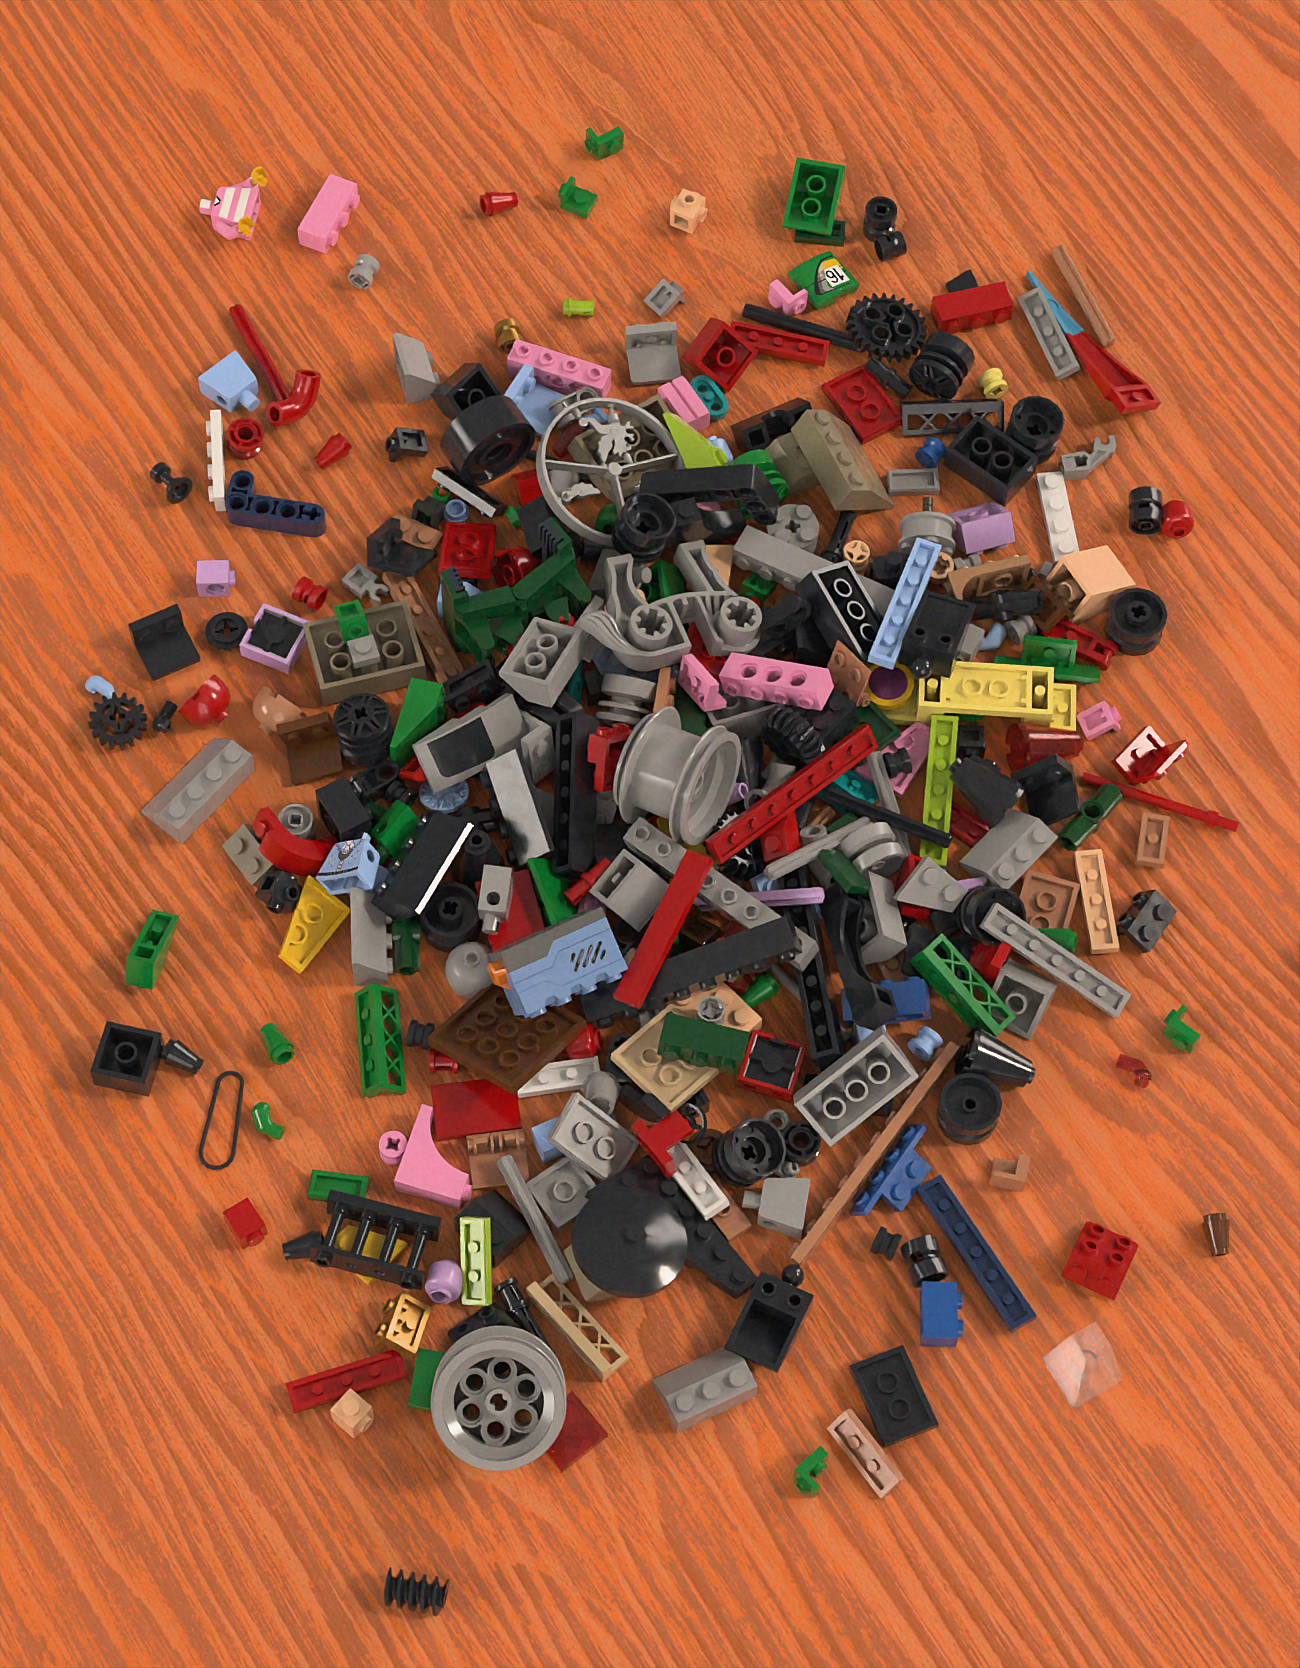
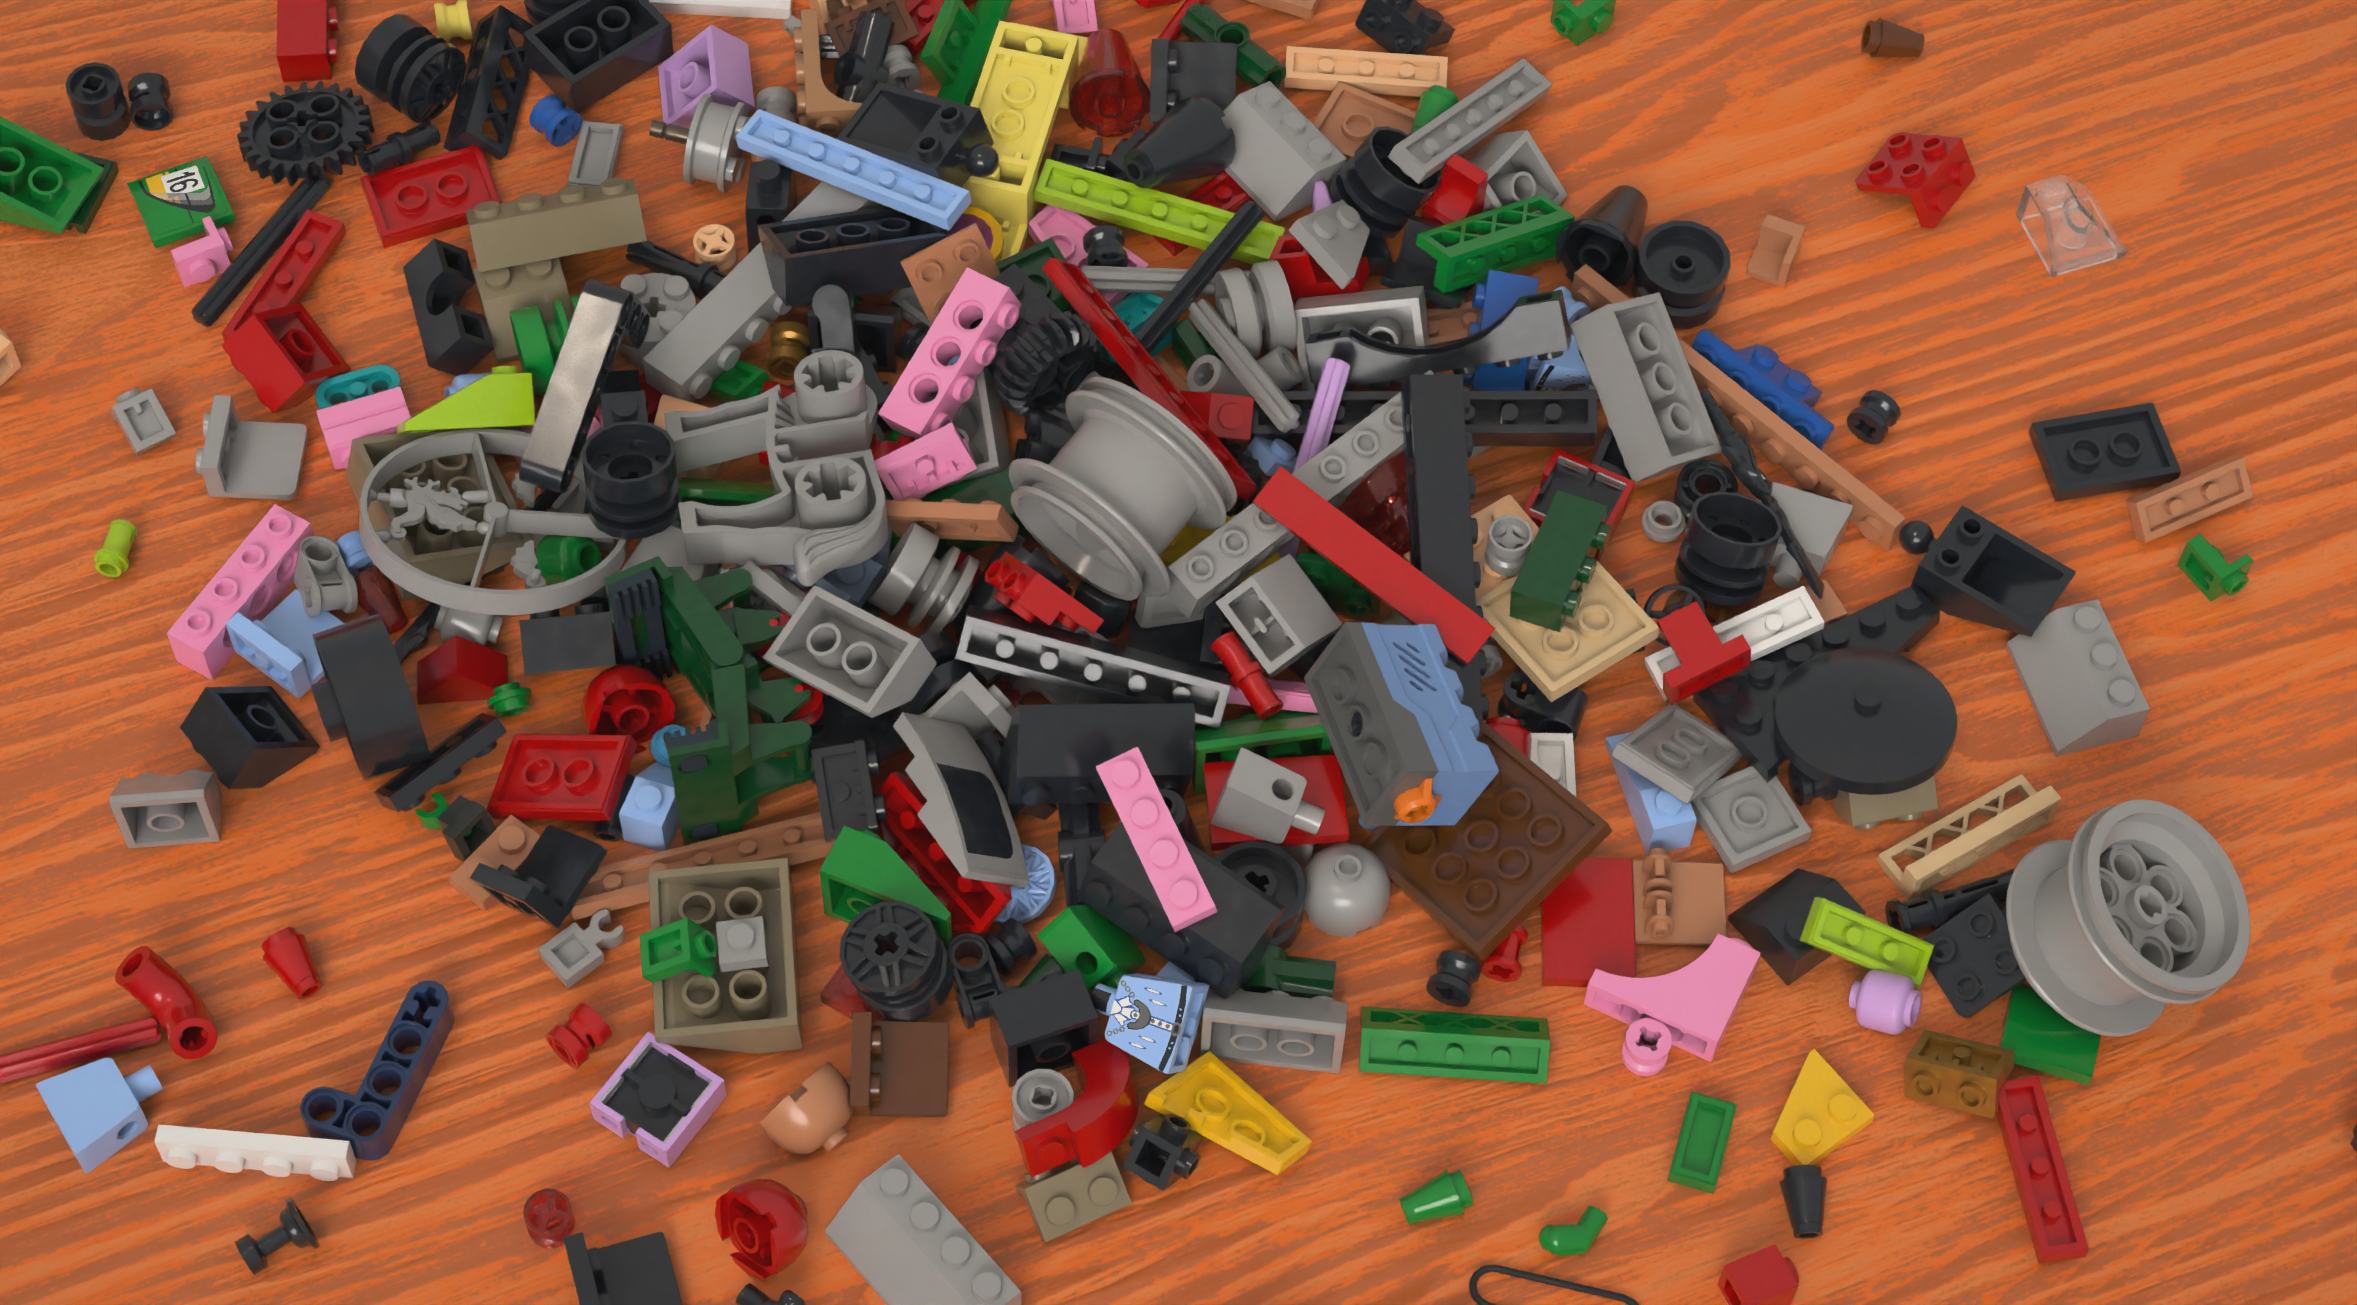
camera: 80 degrees left, 5 degrees down
(194, 600) = (543, 1208): none -> clear red wheel
(214, 578) = (504, 1186): lavender brick -> none
(216, 626) = (601, 1170): black gear -> none
(245, 448) = (218, 1083): red wheel -> none
(352, 1413) = (2099, 1162): light nougat brick -> none
(382, 1215) = (1780, 1056): black fence -> none
(406, 442) = (312, 847): black bracket -> none
(449, 837) = (1156, 839): none -> bright pink plate
(456, 511) = (472, 785): medium blue plate -> none
(507, 333) = (142, 657): pearl gold wheel -> none
(534, 1219) = (1793, 860): light grey axle -> none
(602, 1090) = (1597, 730): light grey piece -> none
(642, 1105) = (1629, 677): black tile -> none
(809, 1165) = (1744, 465): none -> black sword
(843, 871) = (1293, 336): dark green tile -> none
(923, 1258) = (1919, 367): black wheel -> none
(940, 1314) = (1986, 373): blue brick -> none
(962, 282) = (257, 26): black slope -> none
(976, 1253) = (1894, 315): dark blue plate -> none
(1136, 1066) = (1631, 78): clear red arm -> none

